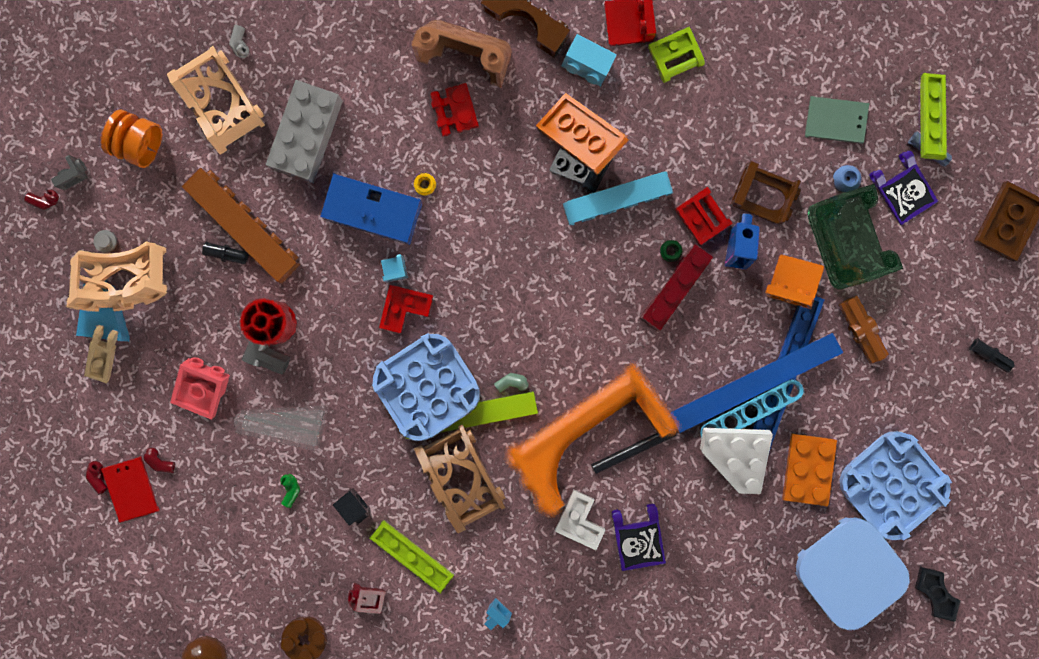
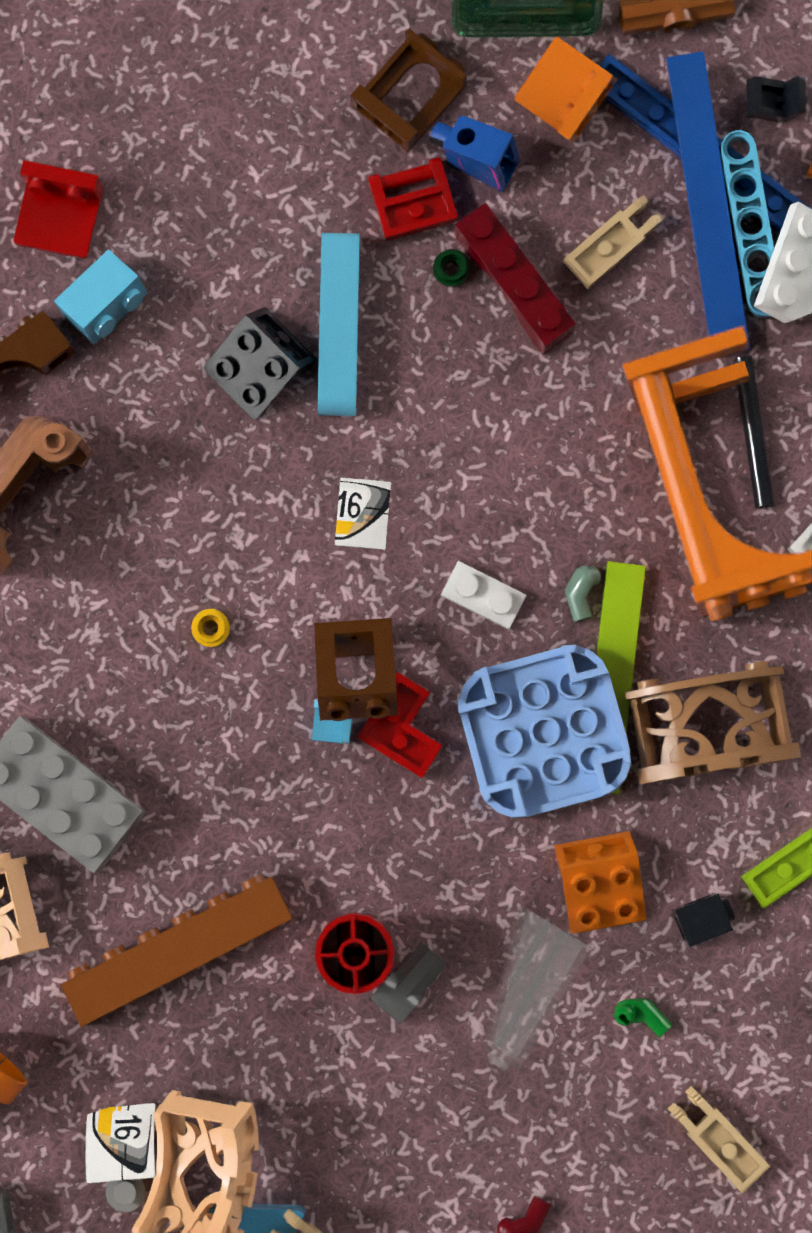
camera: 70 degrees left, 5 degrees down
(128, 229) = (120, 1143): none -> sticker
(199, 387) = (424, 1109): coral plate -> none
(225, 253) = (213, 994): black axle -> none
(234, 555) = (722, 1143): none -> tan hinge
(355, 444) = (601, 882): none -> orange bracket
(371, 209) = (224, 725): blue brick -> none
(443, 264) = (355, 639): none -> reddish brown panel
(461, 107) = (105, 528): red plate -> none
(492, 328) = (483, 595): none -> white plate
(516, 247) = (362, 513): none -> sticker
(582, 133) = (217, 344): orange plate -> none
(673, 48) = (126, 160): lime plate -> none
(714, 335) = (610, 244): none -> tan hinge
(829, 402) = (776, 99): none -> black bracket

